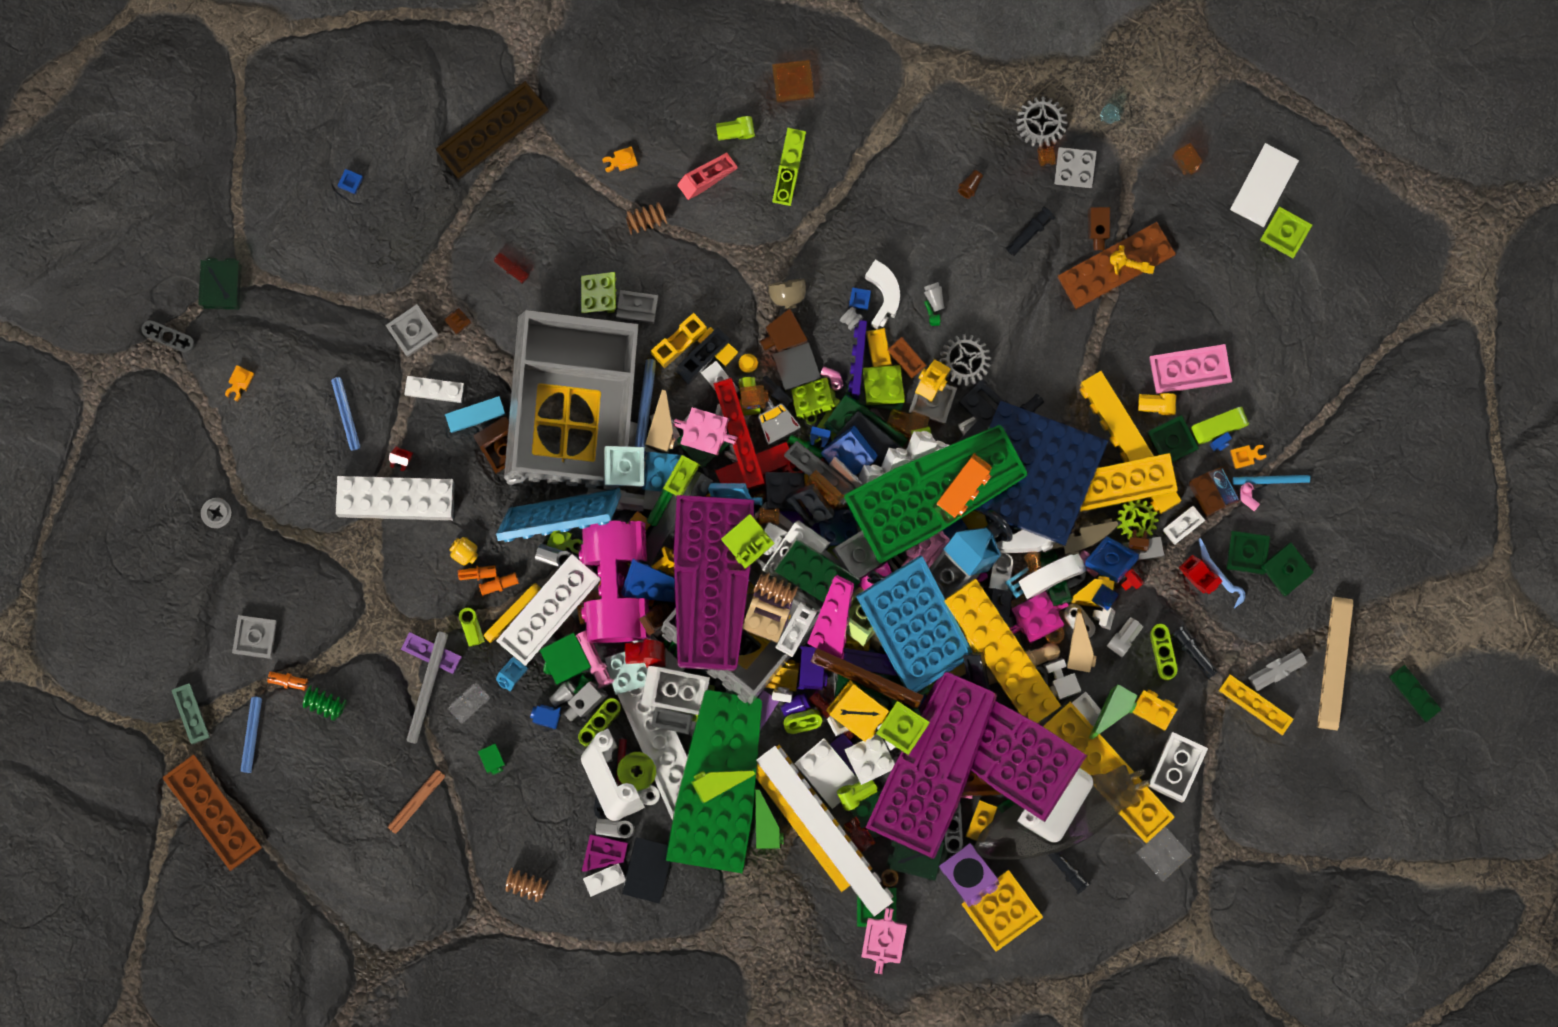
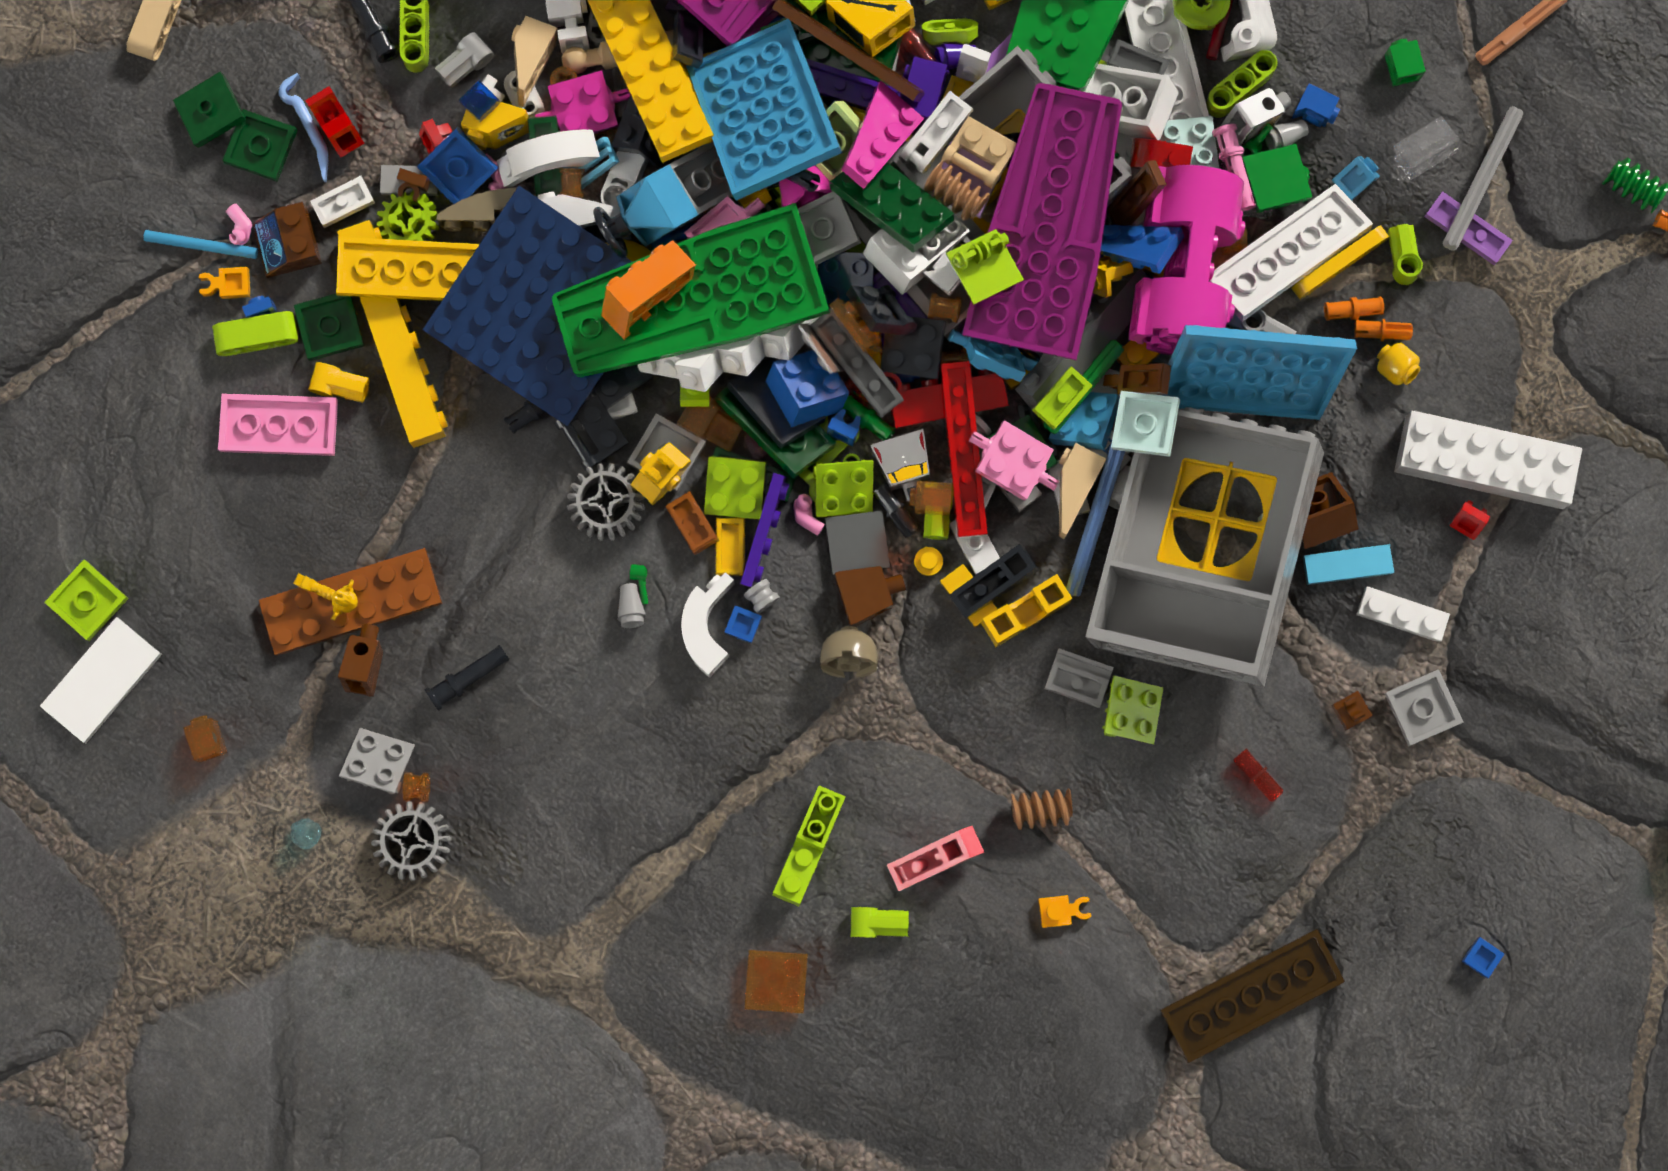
camera: 170 degrees left, 0 degrees up
(345, 413) = (1541, 603): medium blue axle -> none
(632, 496) = (1140, 379): none -> reddish brown hinge
(969, 186) = (540, 766): reddish brown cone -> none

